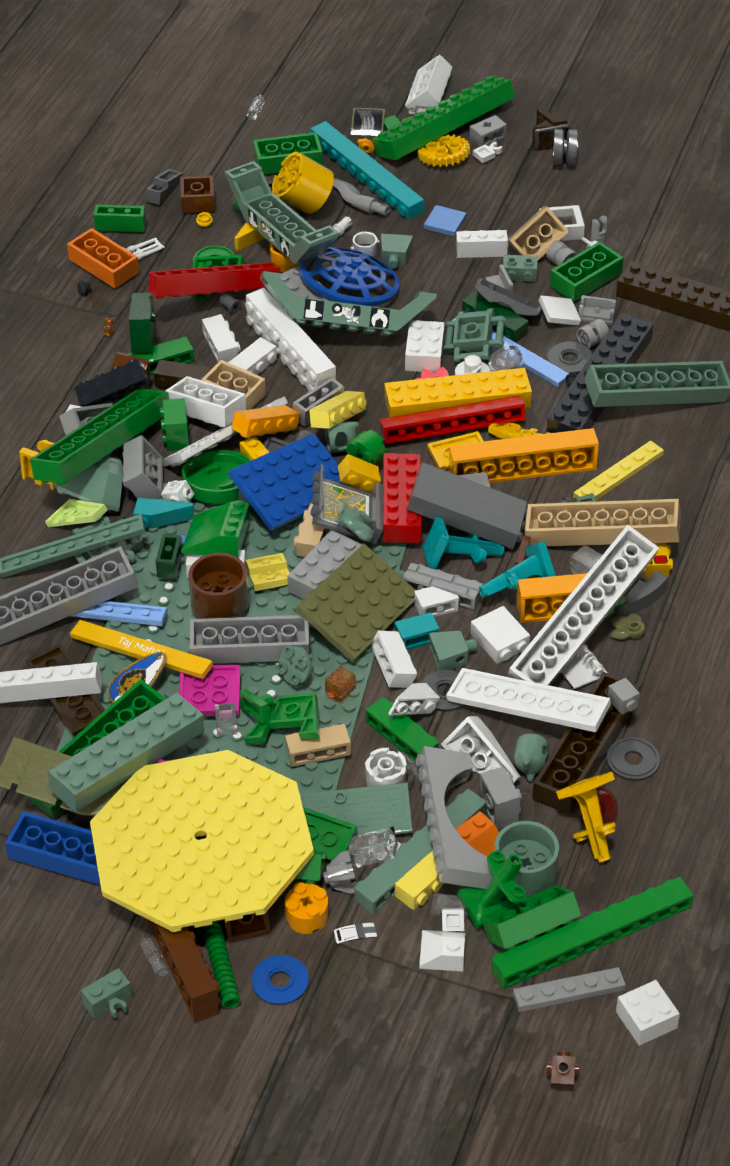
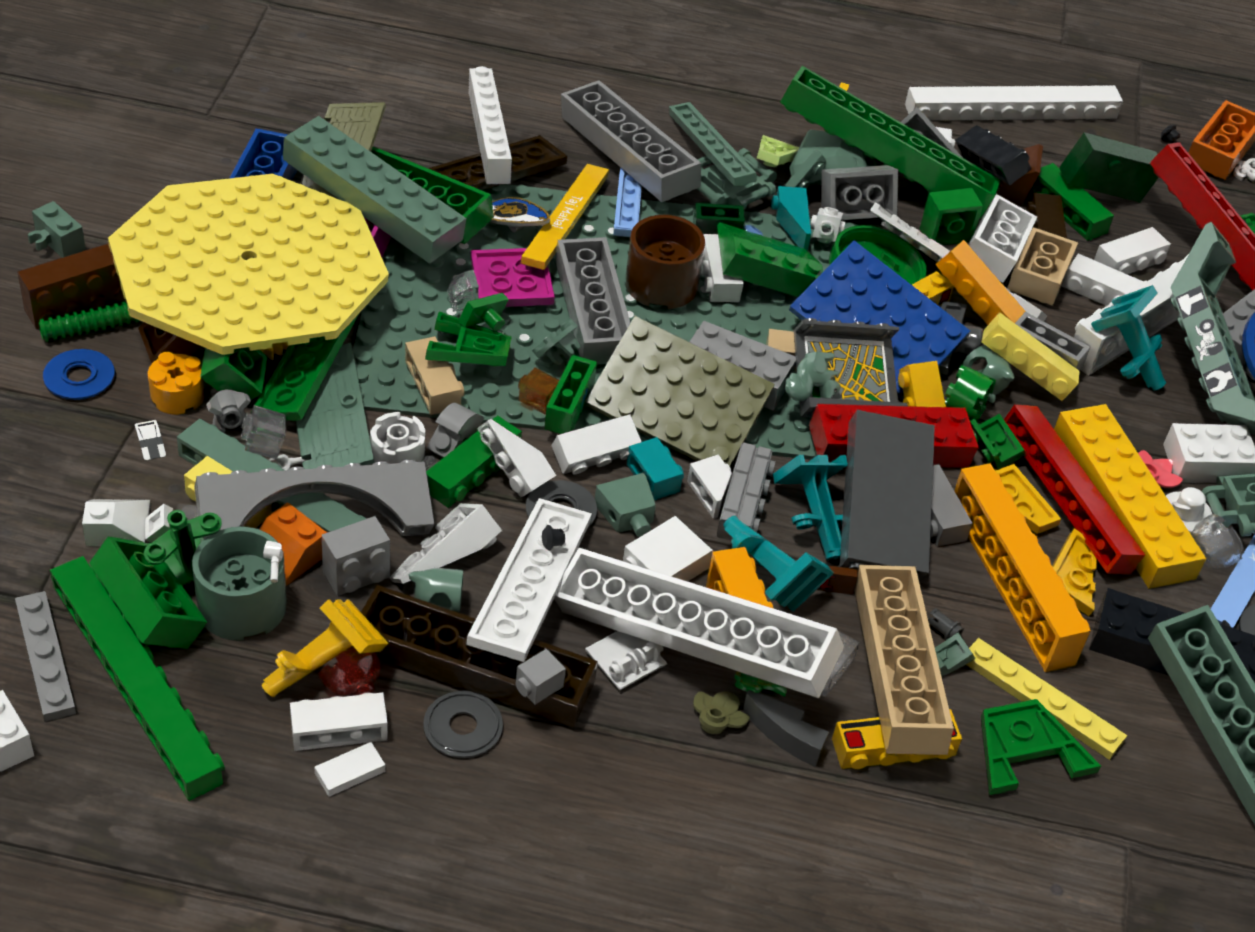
camera: 75 degrees right, 0 degrees up
(33, 367) = (1015, 102): none -> white brick
(119, 498) = (813, 165): none -> sand green hinge
(268, 571) = (727, 313): light yellow slope -> none
(323, 344) = (1127, 317): none -> teal piece
(364, 665) = (570, 395): none -> green brick
(370, 734) = (454, 425): none -> light grey brick
(405, 445) = (998, 441): none -> green bracket
(496, 683) = (552, 537): none -> black piece
(526, 820) = (273, 551): none -> white hand
(635, 819) = (338, 721): none -> white brick
(649, 483) = (1025, 733): none -> green wing
(669, 818) = (349, 769): none -> white tile

